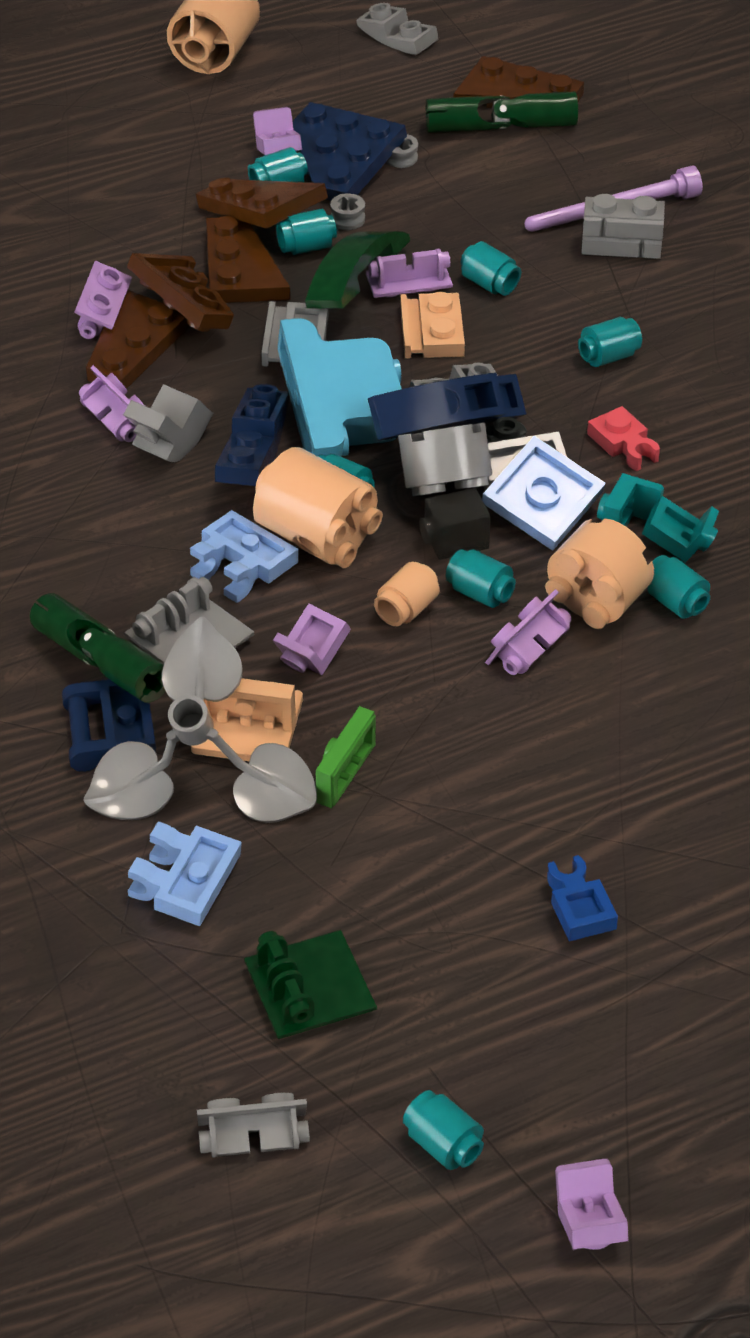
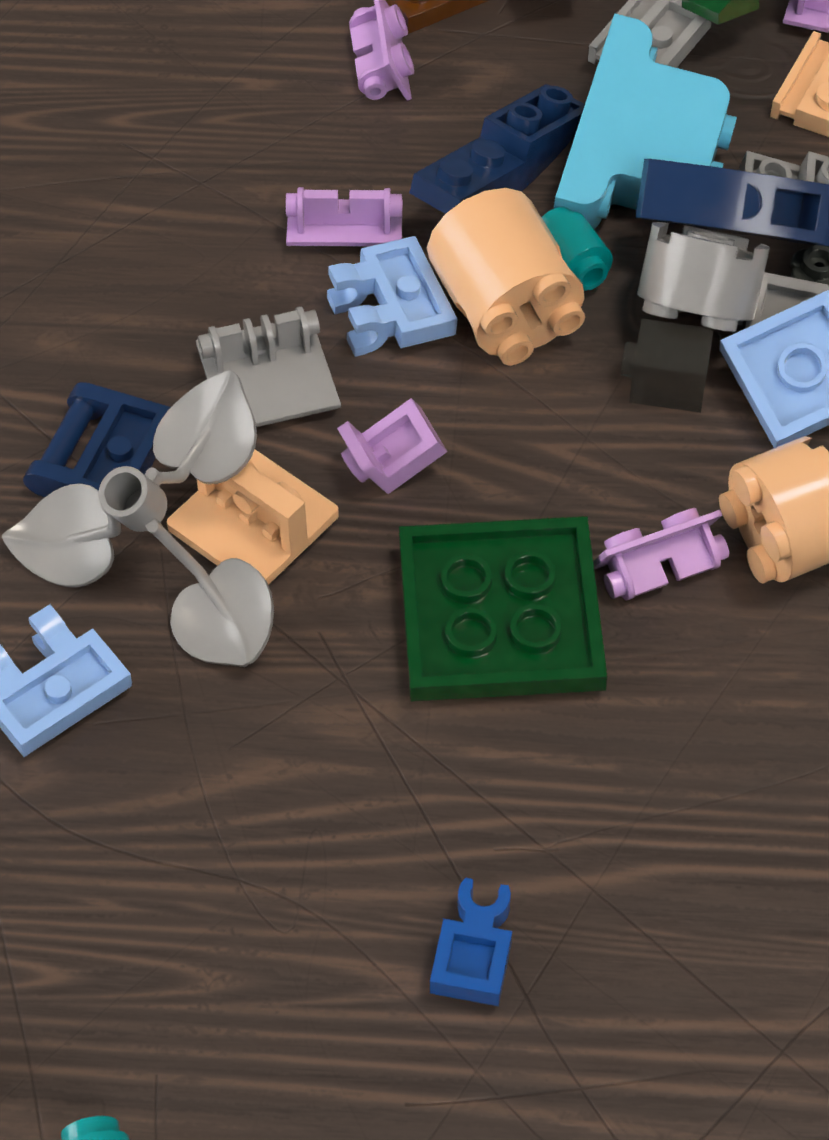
camera: 30 degrees right, 10 degrees up
(99, 647) = (137, 348): dark green piece -> none
(159, 523) = (325, 220): none -> lavender hinge
(170, 425) = (420, 100): light grey brick -> none
(308, 982) = (89, 893): dark green hinge -> none
(345, 756) = (326, 617): bright green plate -> none
(406, 594) = (547, 433): light nougat brick -> none
(452, 706) = (501, 609): none -> dark green plate
(480, 577) = (651, 450): teal brick -> none

